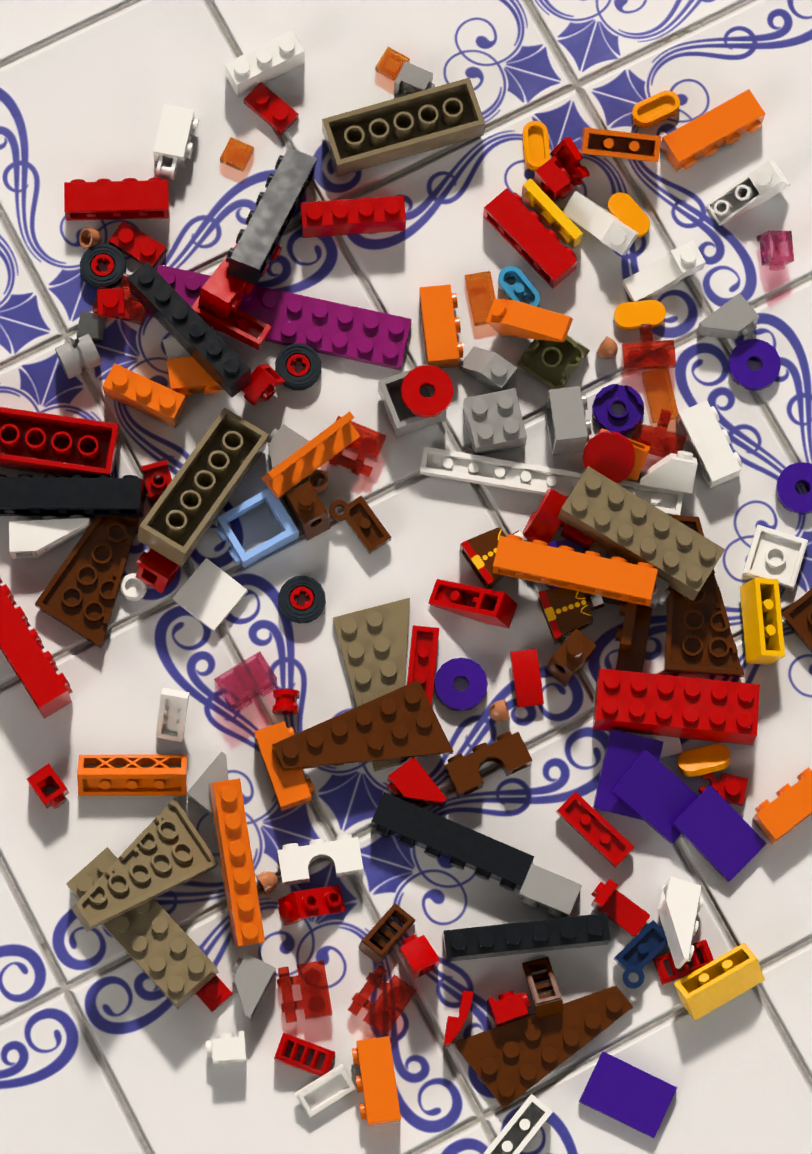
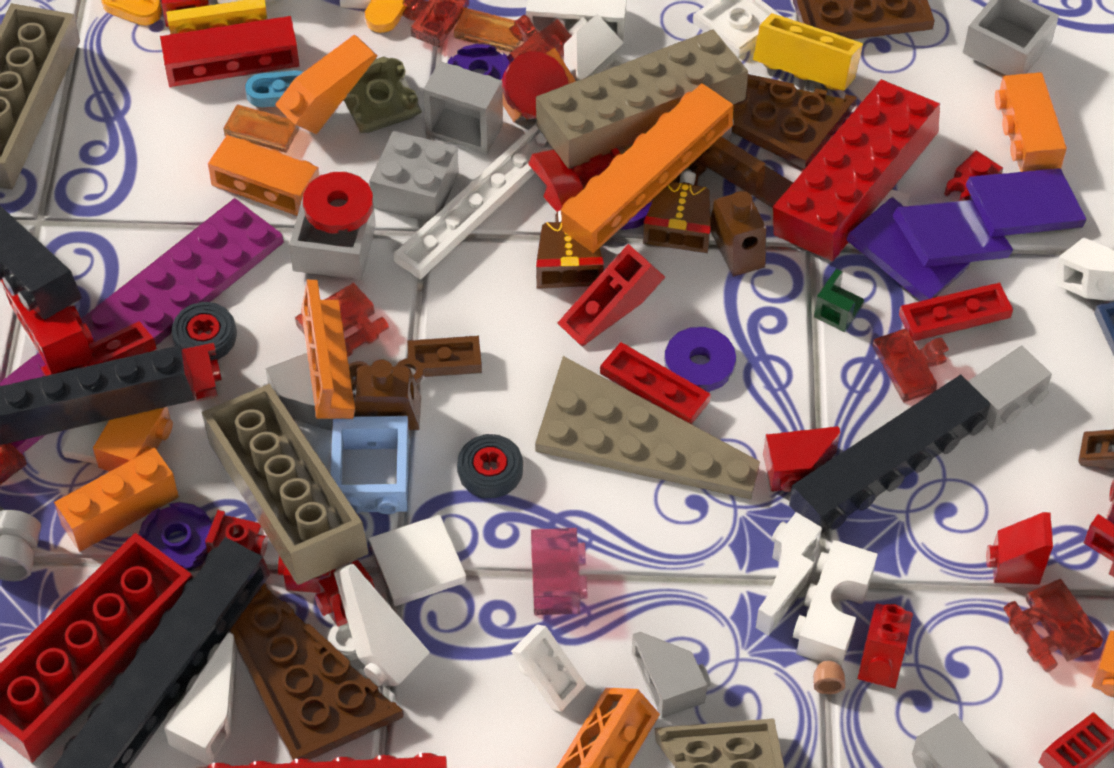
camera: 55 degrees left, 20 degrees down
(134, 610) = (378, 633): none -> white slope
(142, 430) = (183, 518): none -> dark purple tile
(236, 862) = (792, 686): orange brick -> none
(286, 702) = (609, 541): red wheel -> none
(289, 786) = (689, 584): orange brick -> none
(313, 991) = (1001, 694): clear red plate -> none
(347, 815) = (792, 549): none -> white slope
(353, 216) = (74, 188): red brick -> none
(374, 952) = (977, 603): reddish brown slope -> none
(379, 730) = (710, 458): reddish brown wing -> none
(489, 369) = (351, 150): light grey slope -> none
(499, 711) = (757, 334): nougat hinge -> none
(507, 752) = (814, 399): reddish brown arch -> none
(526, 677) = (728, 287): red slope -> none
(526, 937) = (1053, 431): black brick -> none
(536, 818) = (909, 366): none -> clear red plate
(558, 750) = (836, 305): none -> dark green panel
(607, 348) = (404, 47): nougat hinge -> none
(619, 908) = (1061, 335): red bracket -> none
(703, 760) = (932, 177): light orange tile -> none

